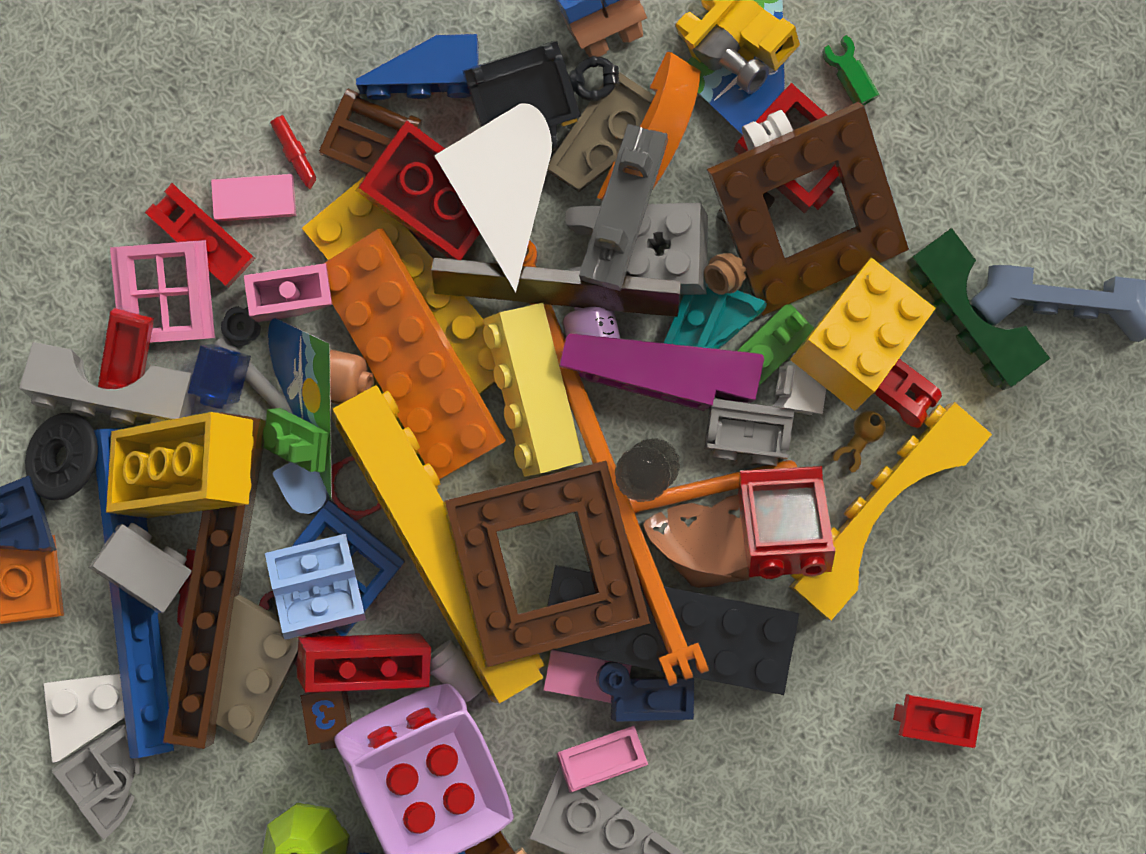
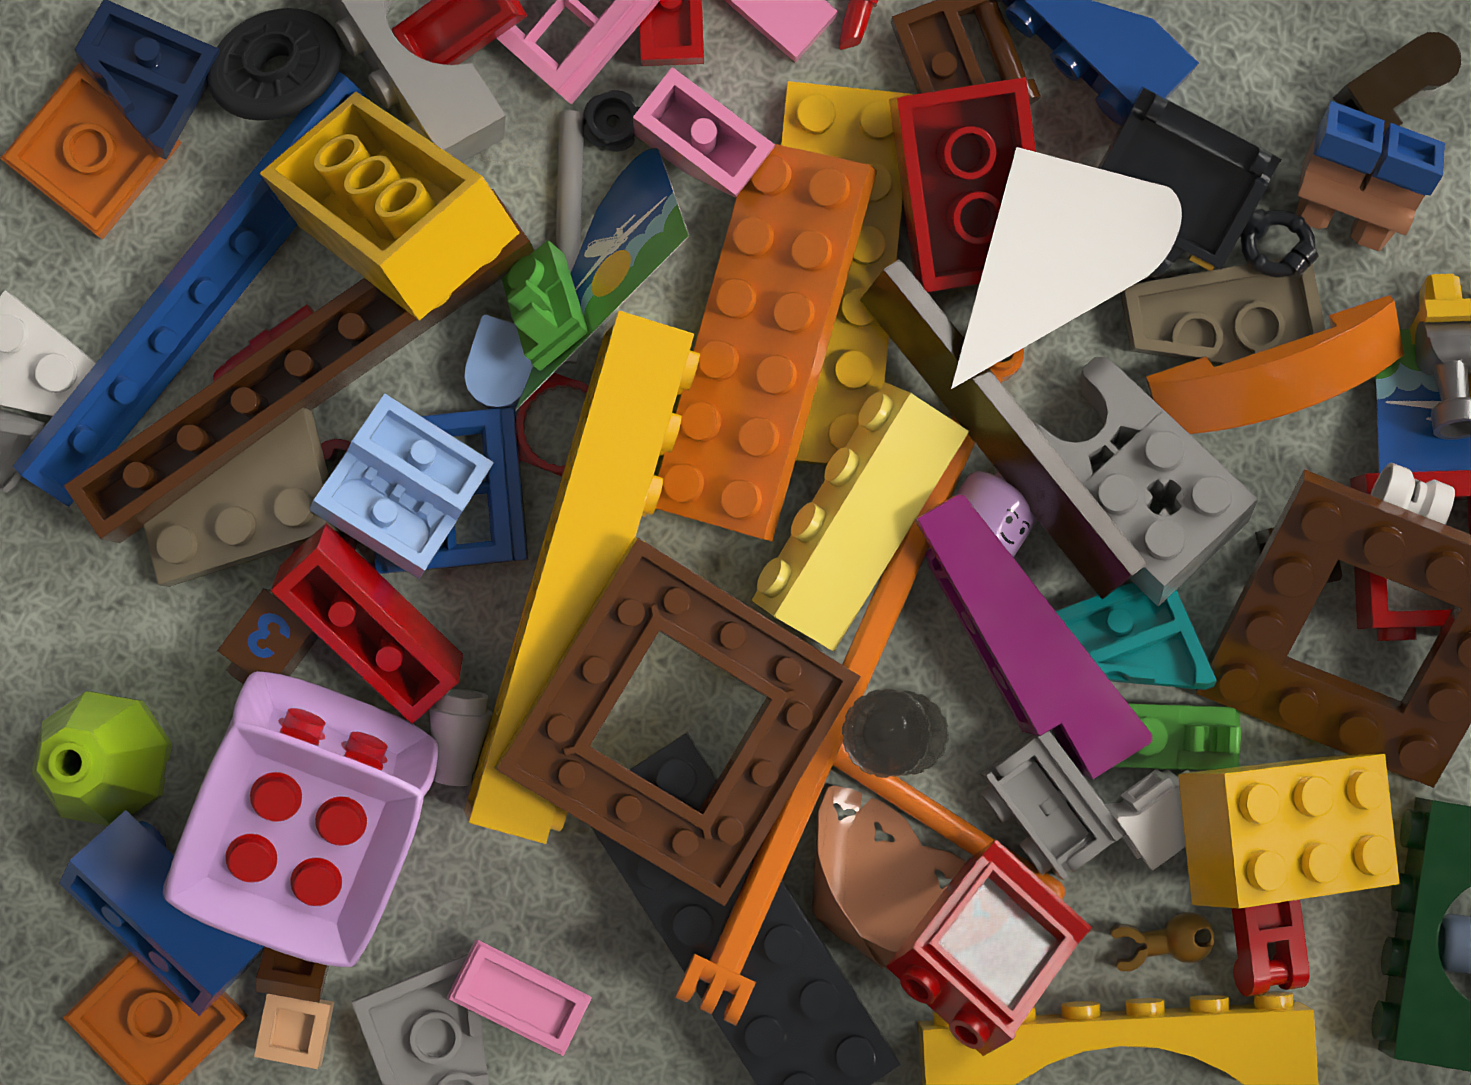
camera: 45 degrees right, 0 degrees up
(141, 567) = (235, 271): light grey hinge -> none
(219, 375) = (533, 150): clear blue brick -> none
(348, 376) = (672, 293): nougat head -> none
(575, 675) = (594, 892): bright pink tile -> none
(623, 208) = (1166, 417): dark grey hinge -> none
(645, 696) = (636, 979): dark blue hinge -> none
(724, 273) = (1203, 605): medium nougat plate -> none

